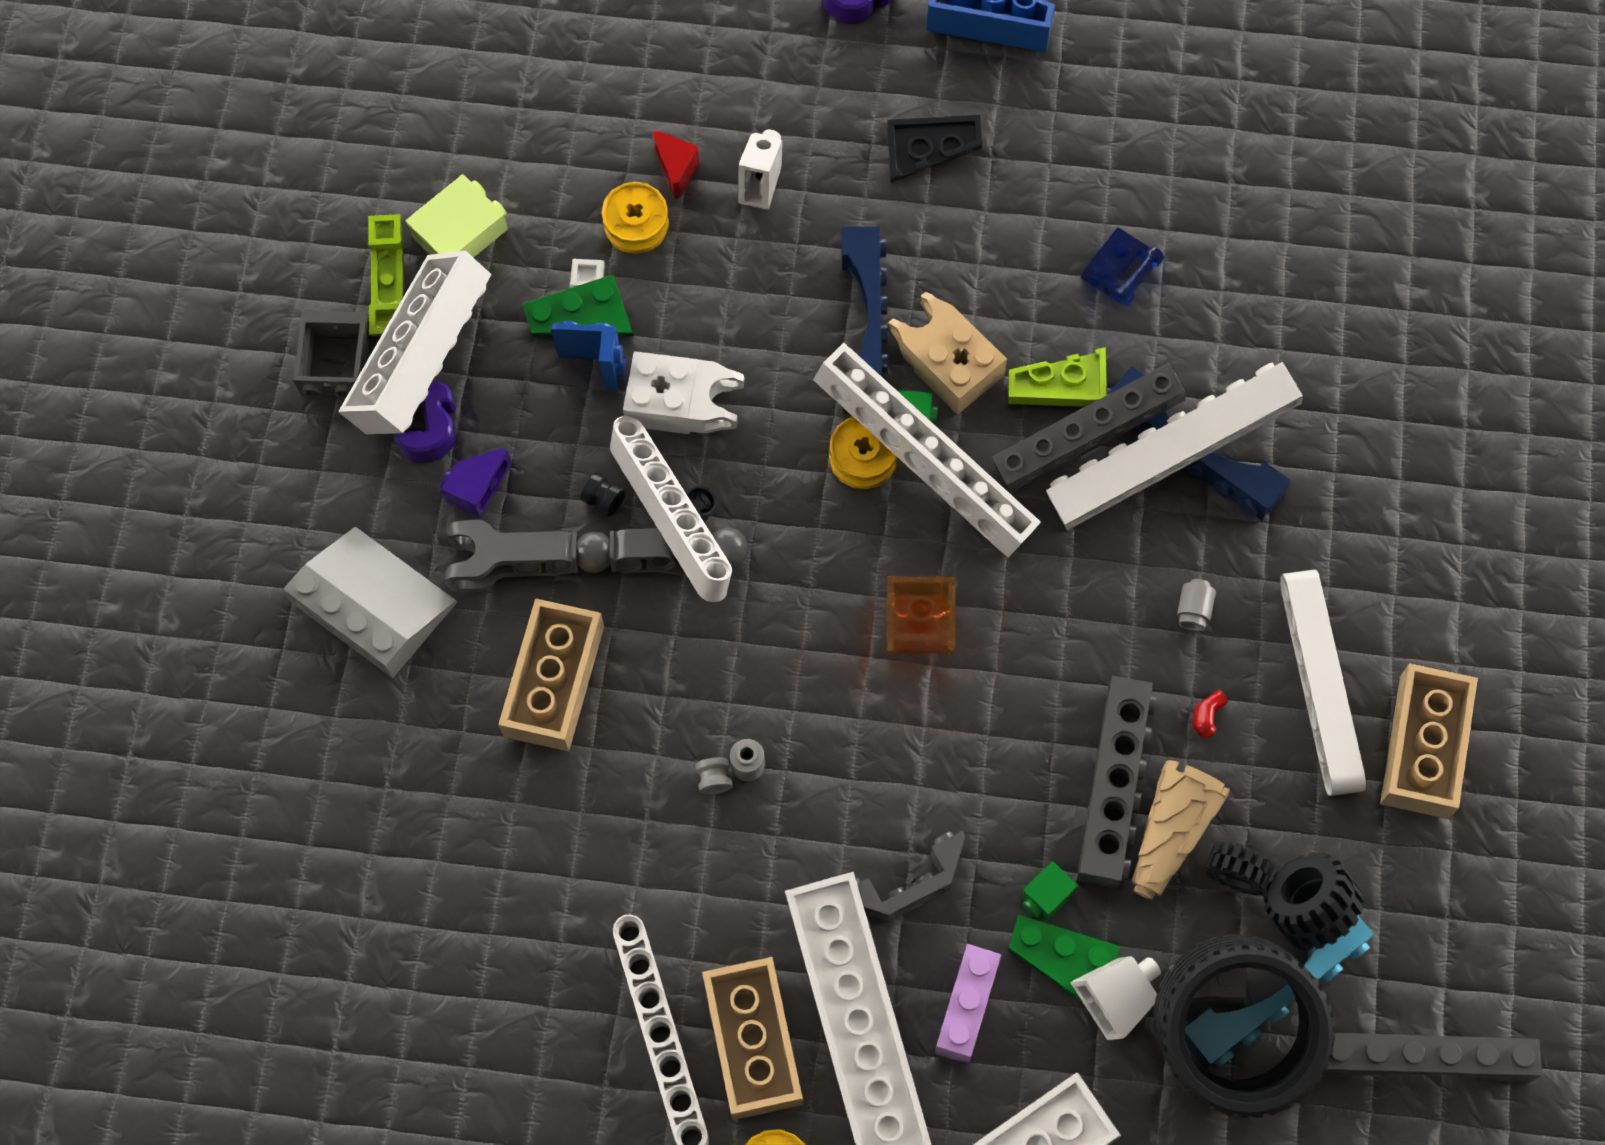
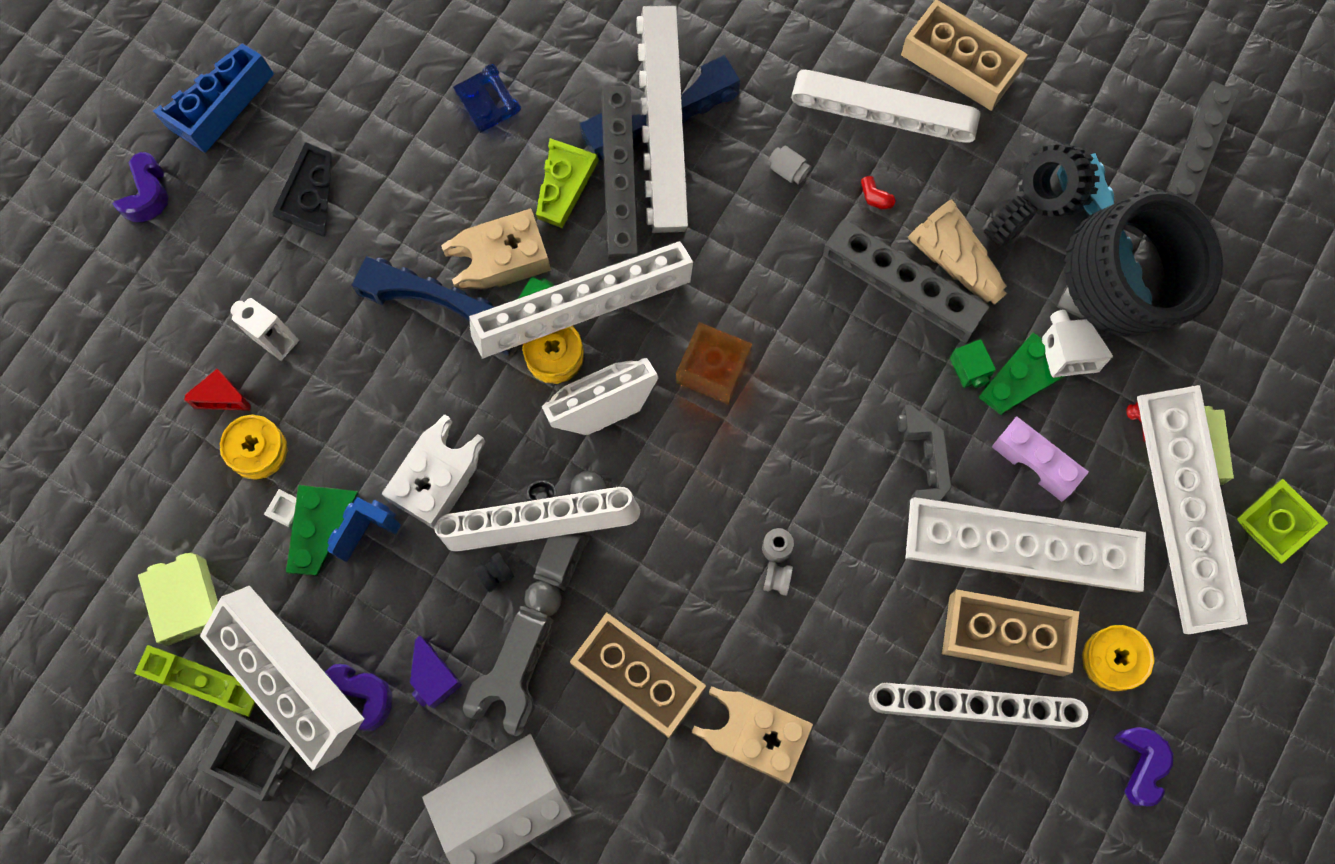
camera: 65 degrees left, 5 degrees up
(533, 806) = (745, 730): none -> tan brick
(829, 517) = (601, 397): none -> white wedge

